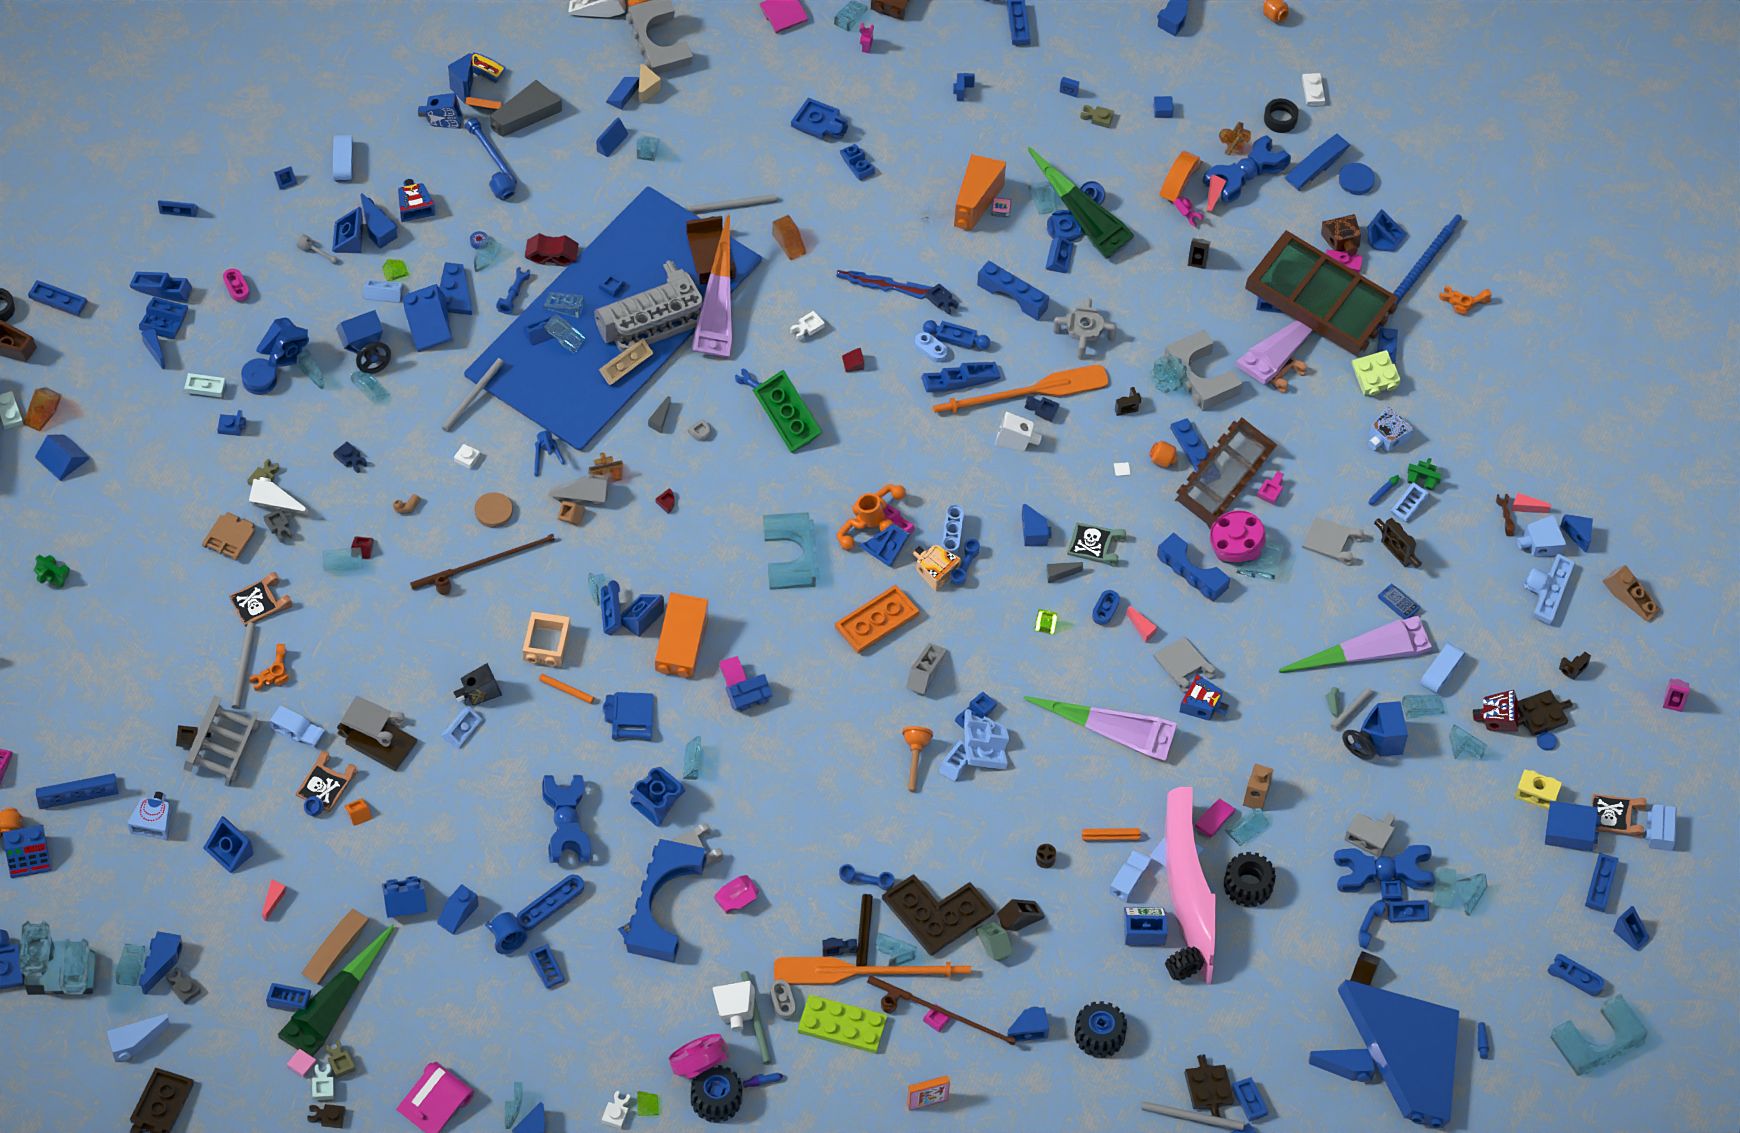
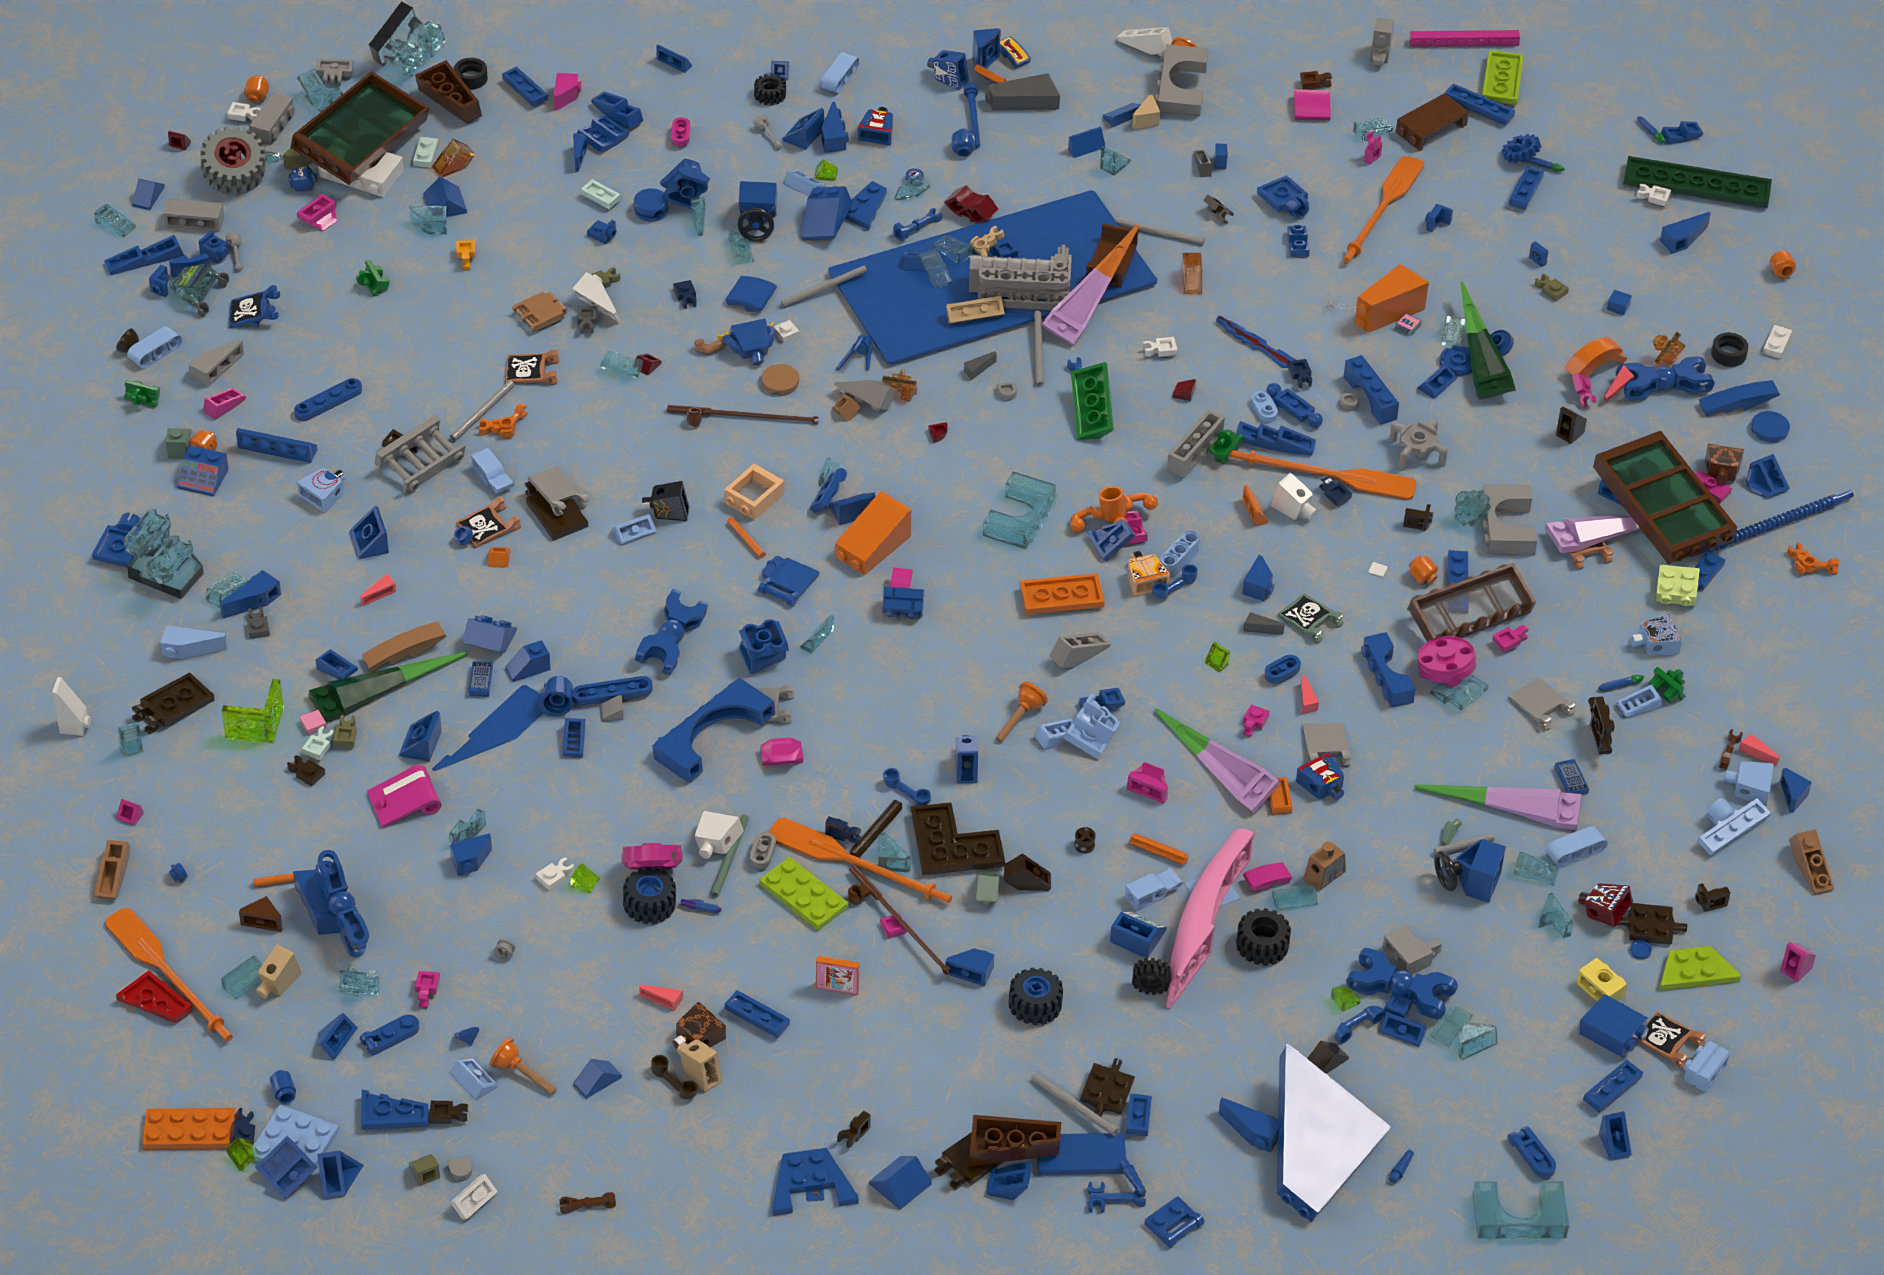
camera: 30 degrees right, 10 degrees down
(63, 483) = (429, 218): none -> clear light blue slope
(91, 719) = (328, 399): none -> blue plate
(99, 284) = (566, 89): none -> dark pink slope
(119, 502) = (465, 250): none -> light orange plate
(254, 1095) = (260, 723): none -> clear neon green bracket
(289, 194) = (770, 96): none -> black tyre
(410, 430) = (751, 293): none -> blue slope
(411, 1032) = (422, 738): none -> blue slope
(424, 946) = (480, 678): none -> tile
(443, 482) = (750, 339): none -> blue torso
(472, 983) = (500, 726): none -> blue sticker
(561, 920) = (613, 709): none -> light grey slope
(590, 289) = (983, 244): none -> tan piece
(703, 376) = (1038, 348): none -> light grey piece
(726, 114) = (1203, 163): none -> dark grey piece
(738, 101) = (1220, 156): none -> blue piece
(766, 156) = (1216, 206): none -> dark brown plate
(900, 414) = (1195, 443): none -> light grey brick
(901, 824) = (966, 752): none -> blue torso
(906, 69) = (1394, 187): none -> orange piece
(925, 403) = (1224, 445): none -> green hips
(984, 455) = (1253, 507): none -> orange slope
(998, 309) = (1349, 402): none -> light grey tile
(1066, 774) = (1149, 782): none -> dark pink slope
(1112, 667) = (1254, 718): none -> dark pink plate
(1182, 739) = (1280, 799): none -> orange tile
(1345, 904) = (1344, 998): none -> clear neon green slope
(1600, 737) = (1697, 968): none -> lime wing

